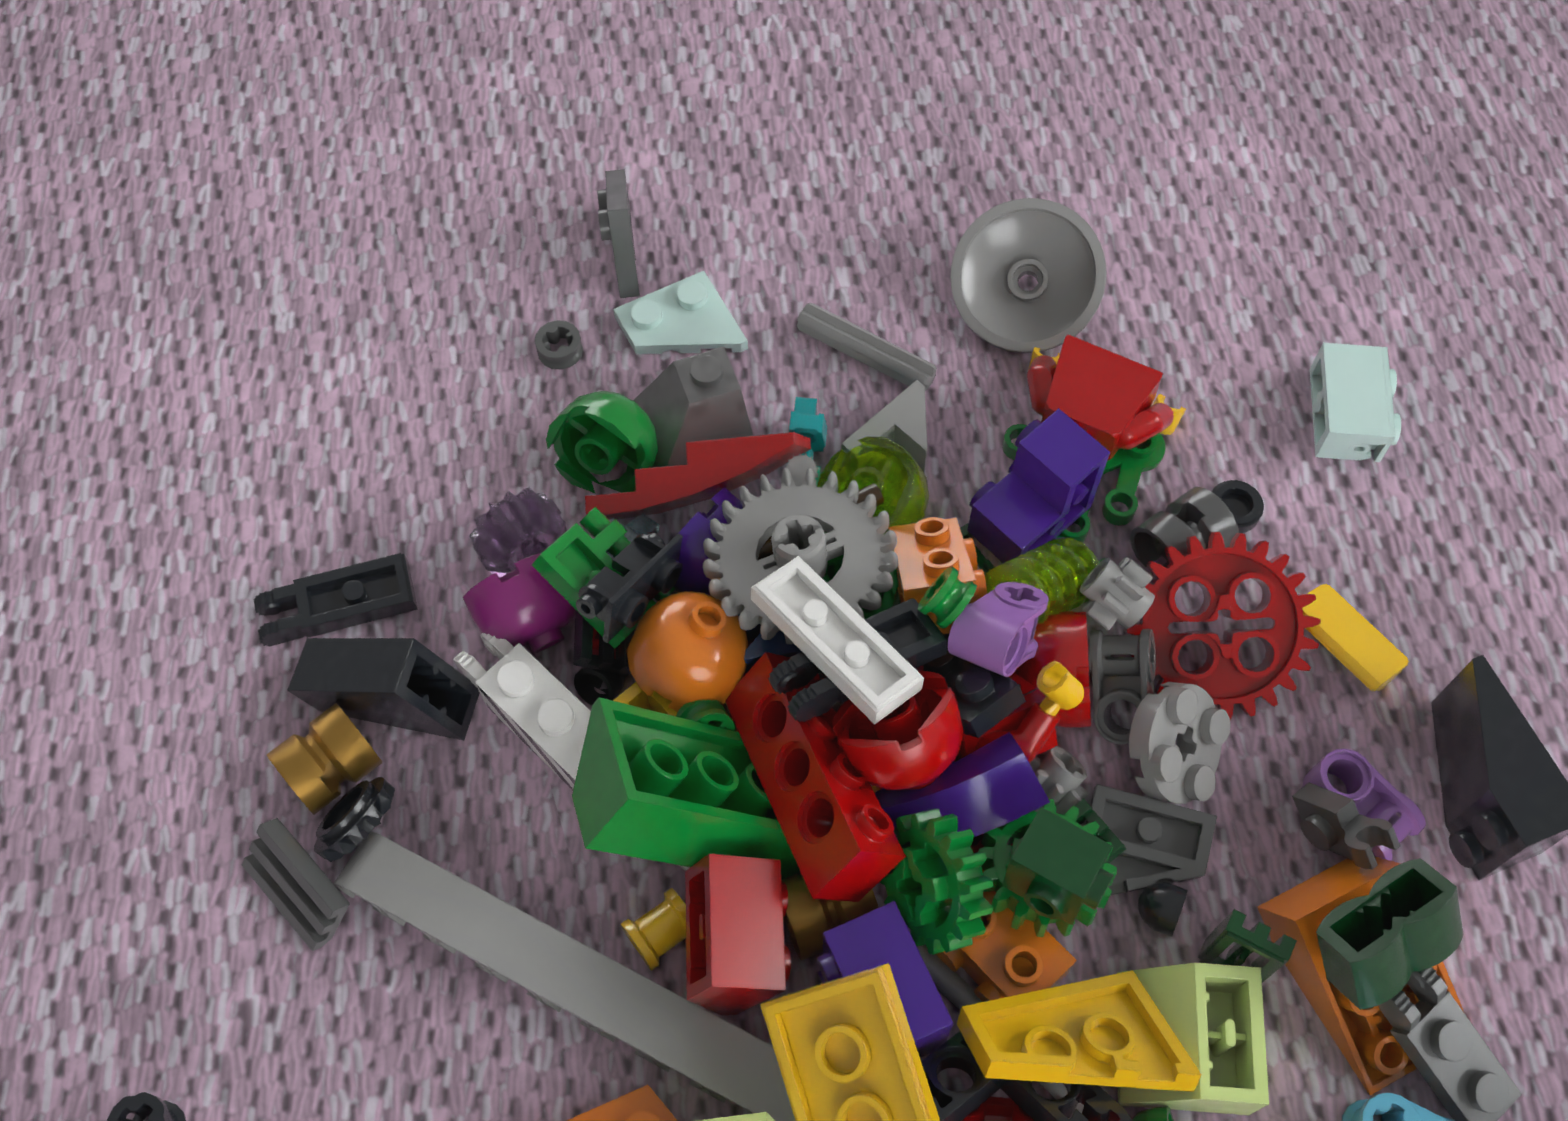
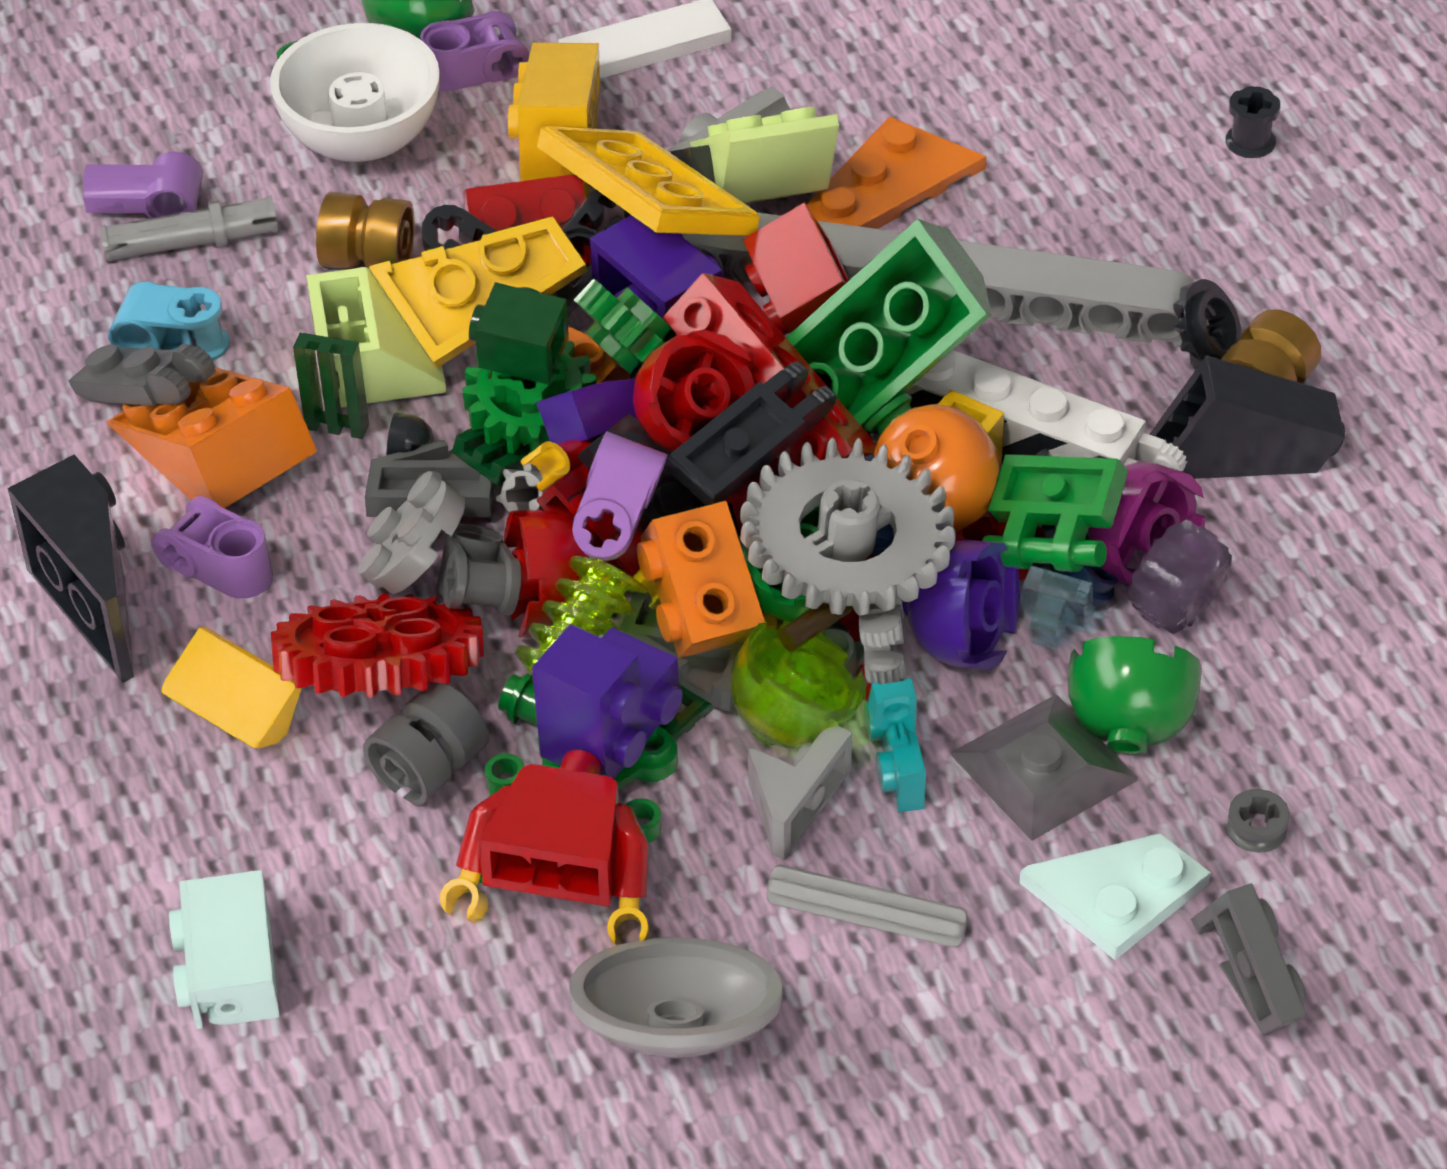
camera: 165 degrees right, 15 degrees down
(295, 884) = (1237, 285): dark grey tile -> none
(338, 599) = (1346, 506): black hinge -> none
(621, 600) = (1020, 457): black hinge -> none
(708, 470) = (993, 641): red slope -> none
(837, 639) = (779, 415): white tile -> none
(947, 597) = (678, 480): green bush -> none
(1117, 593) = (498, 602): light grey gear -> none
(1242, 501) = (366, 819): black tile -> none
(1335, 825) = (236, 495): dark grey plate -> none
(1395, 930) = (208, 359): dark green brick -> none

